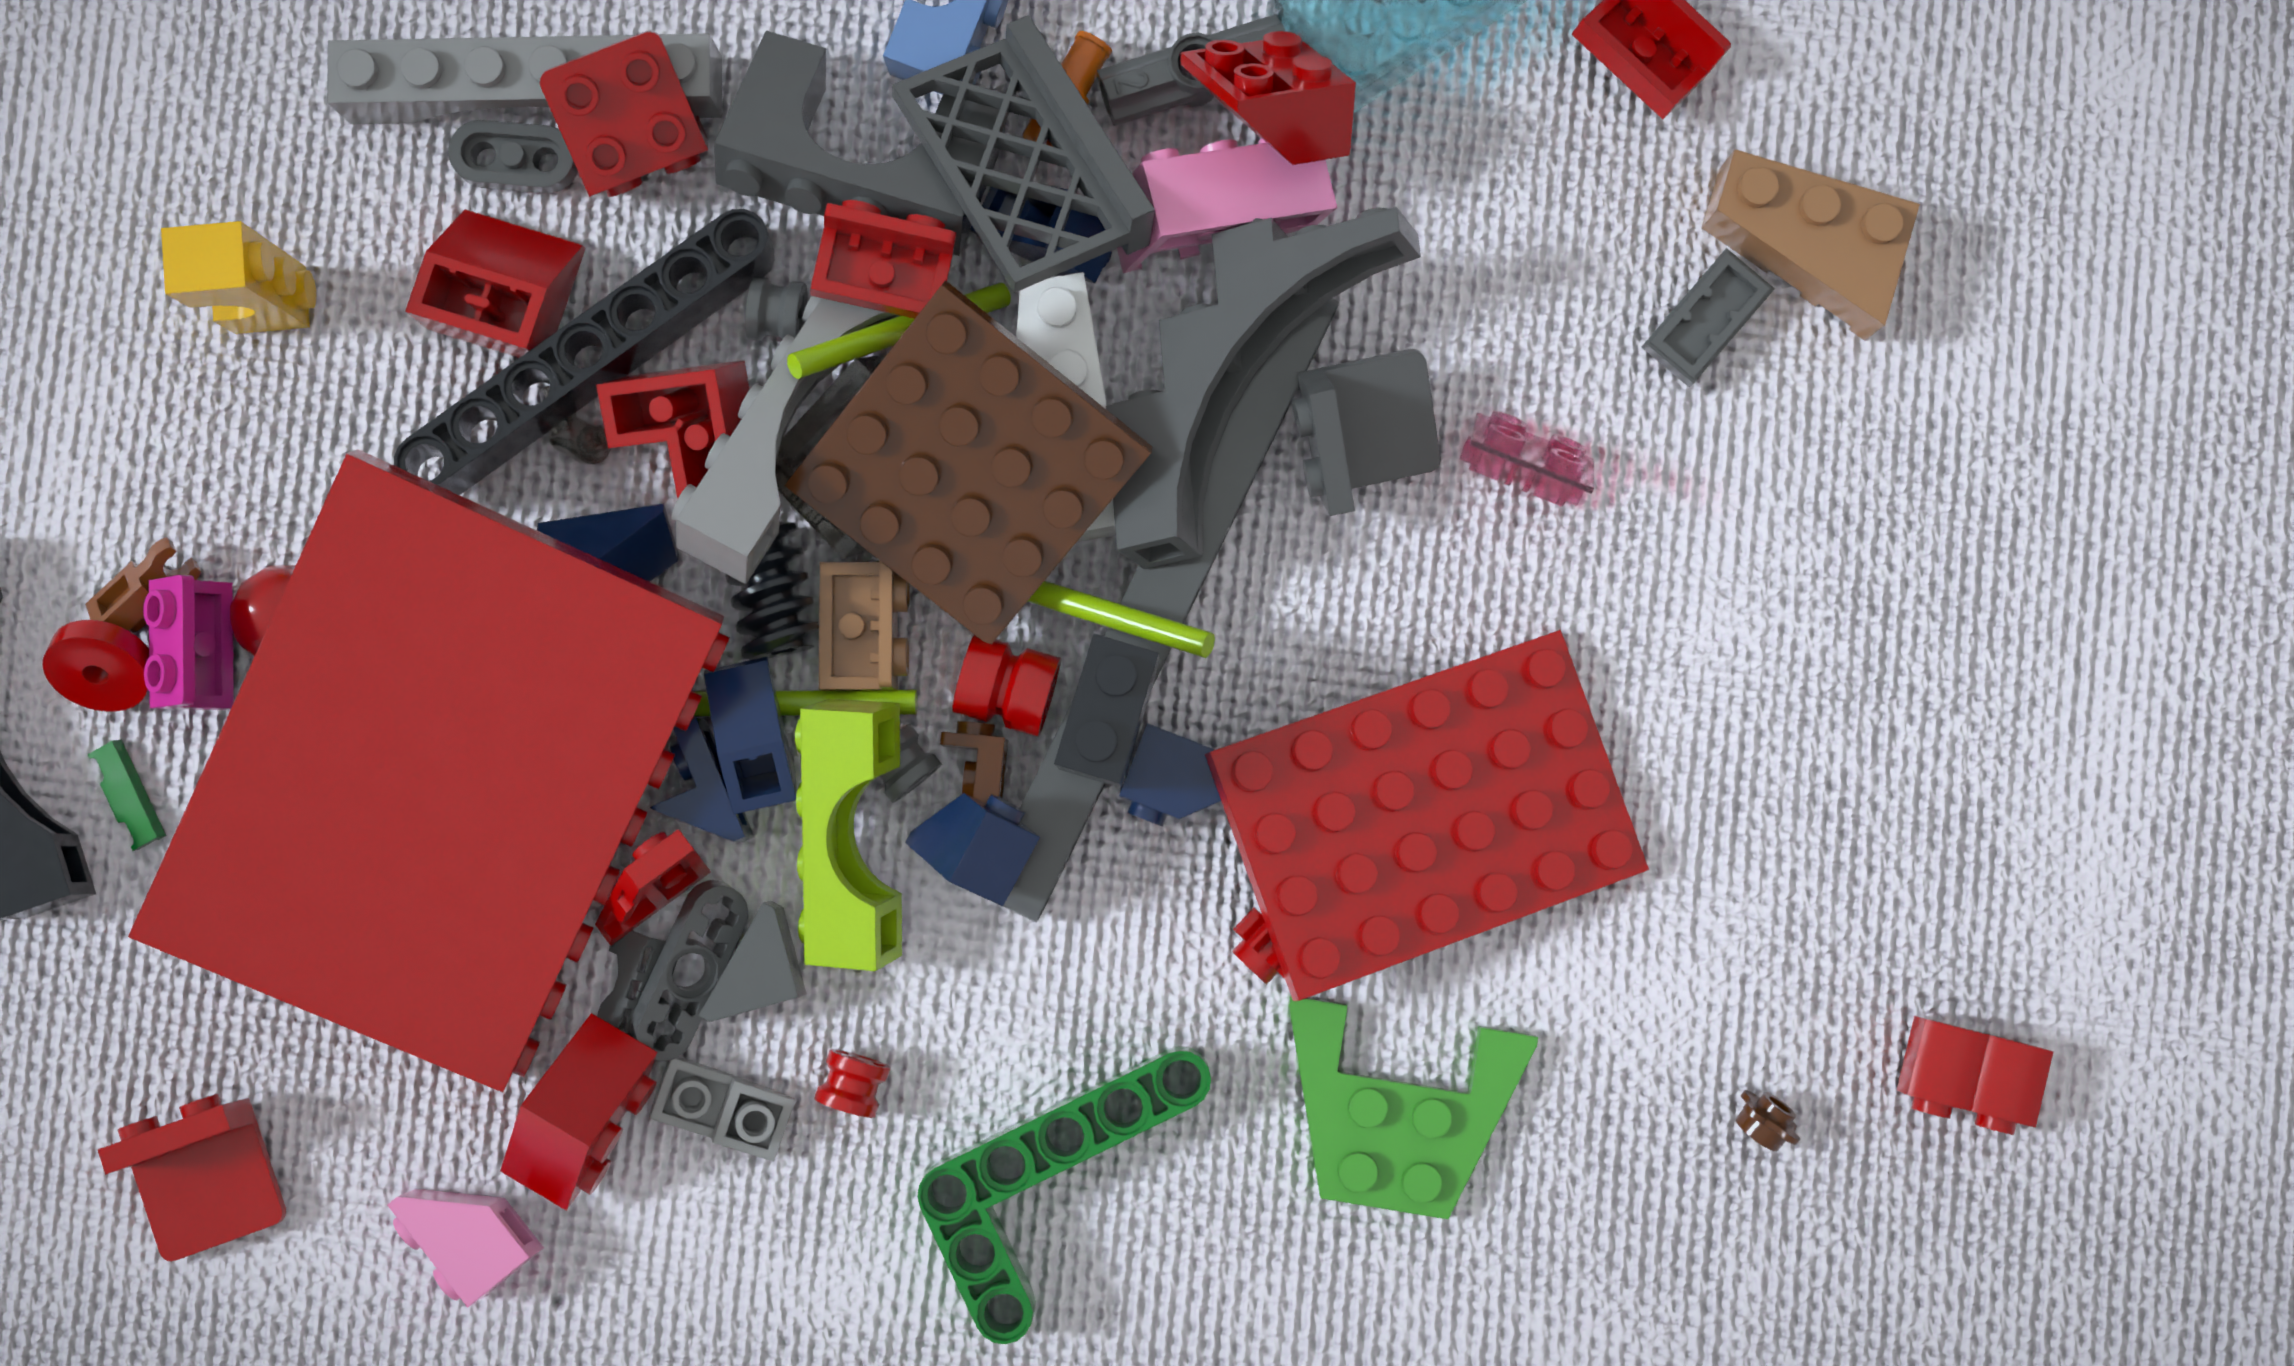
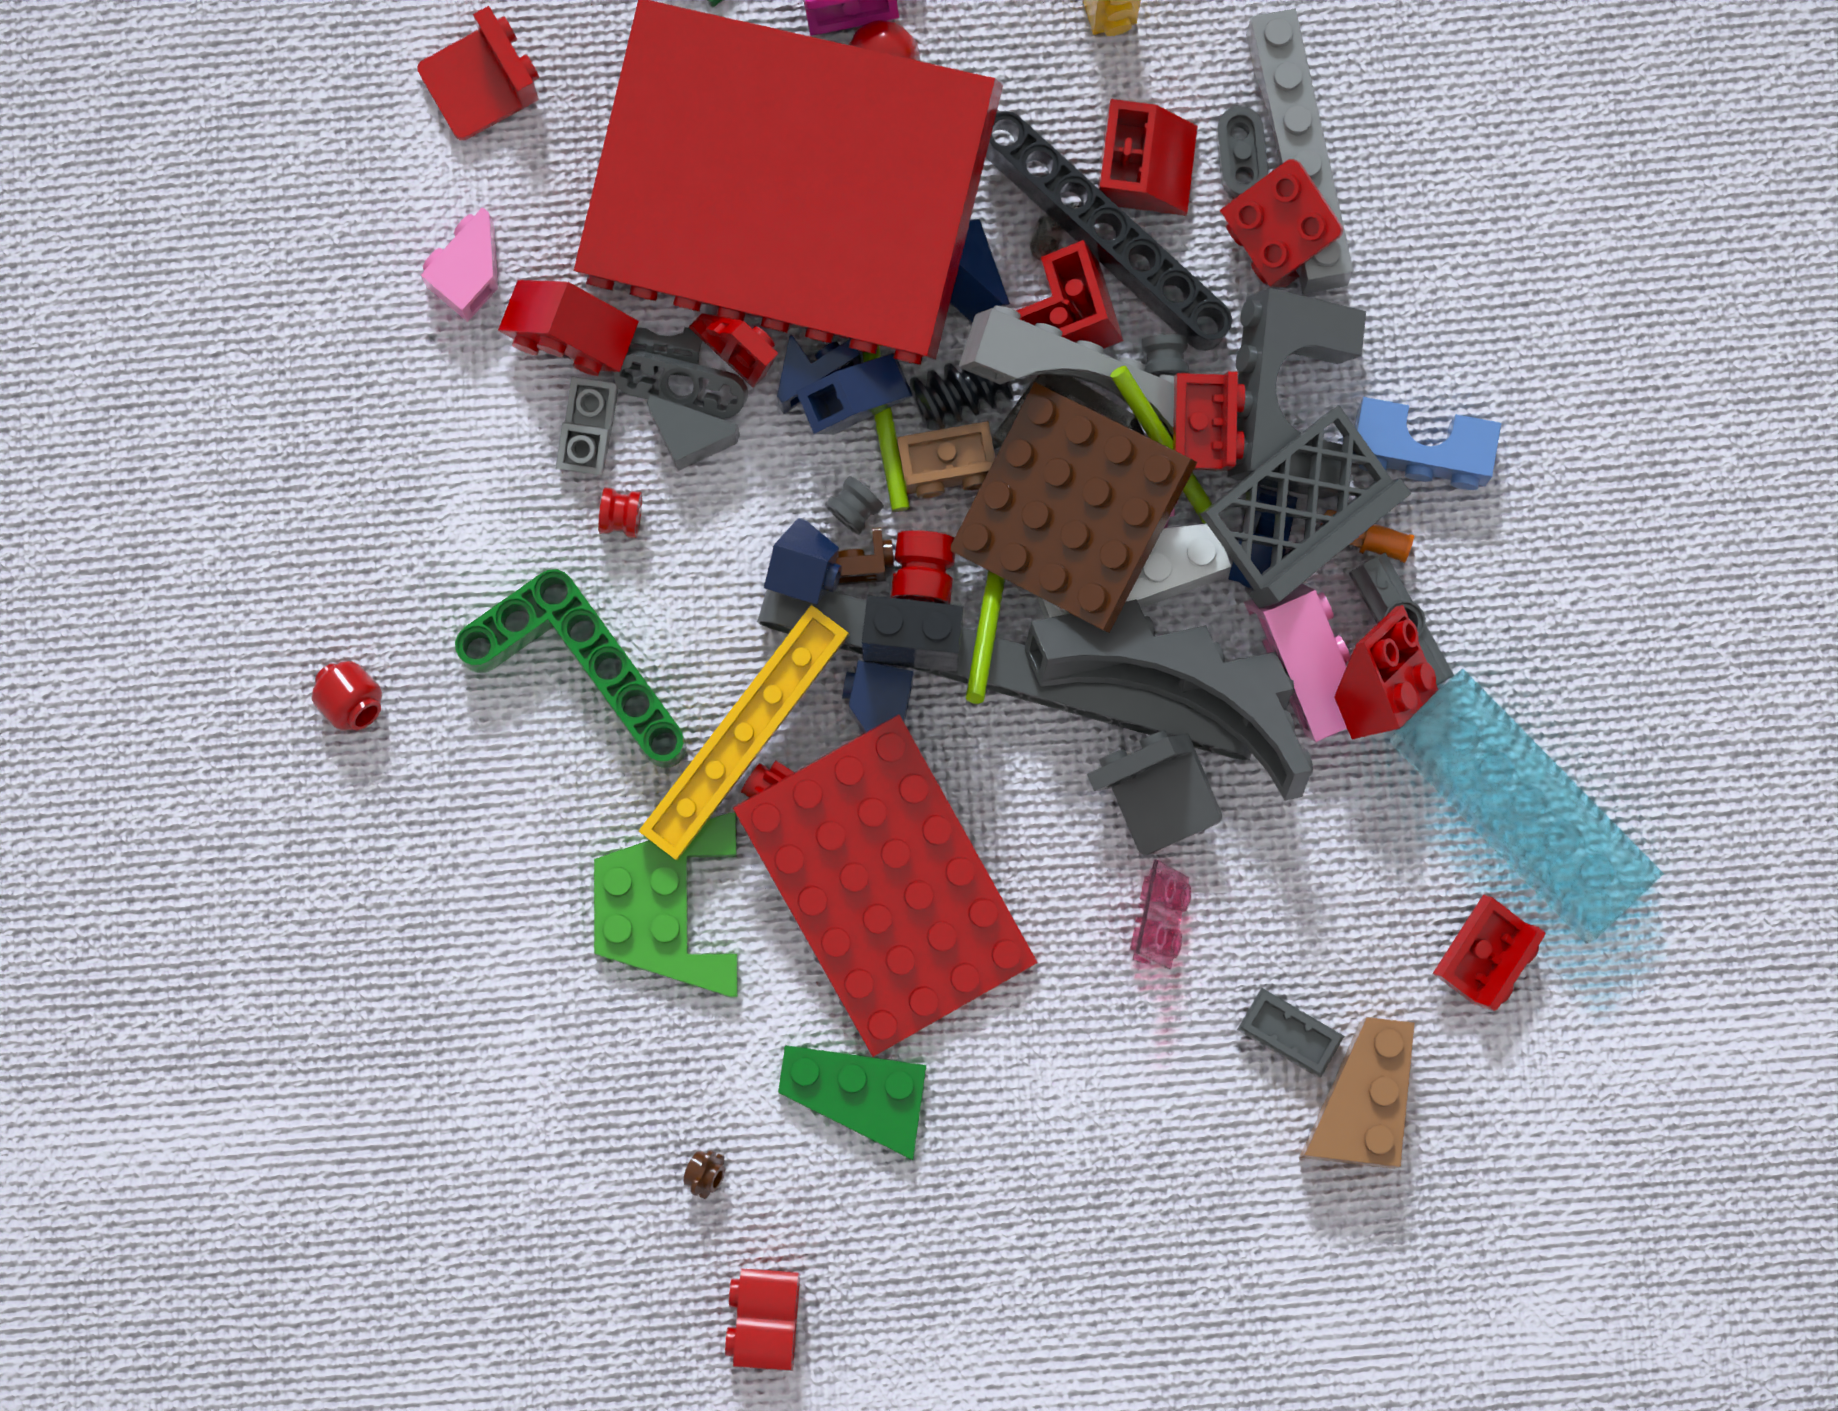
camera: 75 degrees right, 5 degrees down
(847, 911) = (742, 484): lime arch -> none
(1191, 966) = (744, 732): none -> yellow plate
(1690, 897) = (859, 1092): none -> green wing

